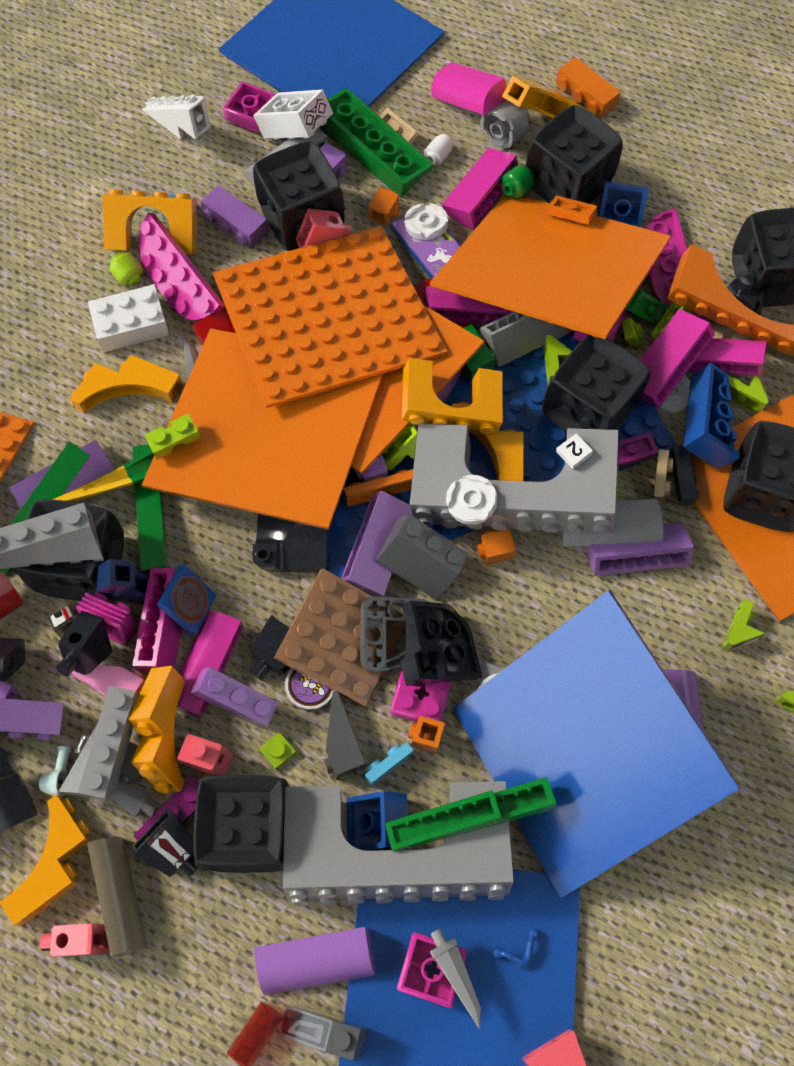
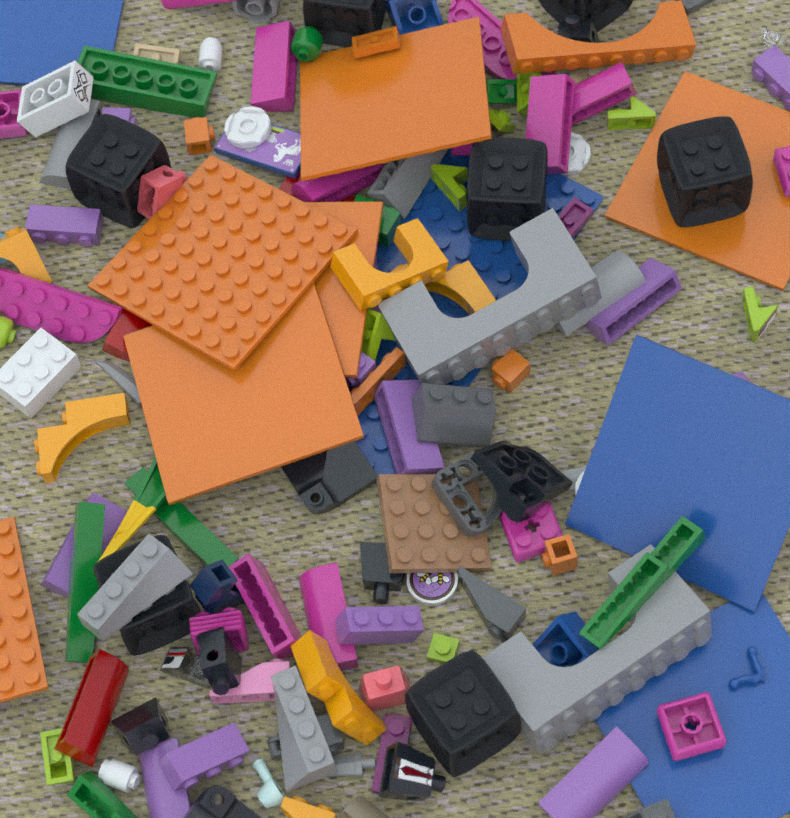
camera: 25 degrees left, 5 degrees down
(163, 440) = (172, 435): lime piece -> none
(187, 600) = (278, 574): tile -> none
(396, 757) = (540, 608): medium azure plate -> none
(452, 965) = (706, 708): light grey bar -> none
(471, 499) = (469, 338): white tile -> none
(574, 451) = (529, 246): white tile -> none
(664, 465) = (606, 217): tan plate -> none
(683, 475) = (626, 216): black piece -> none
(710, 417) = (616, 154): blue wedge -> none

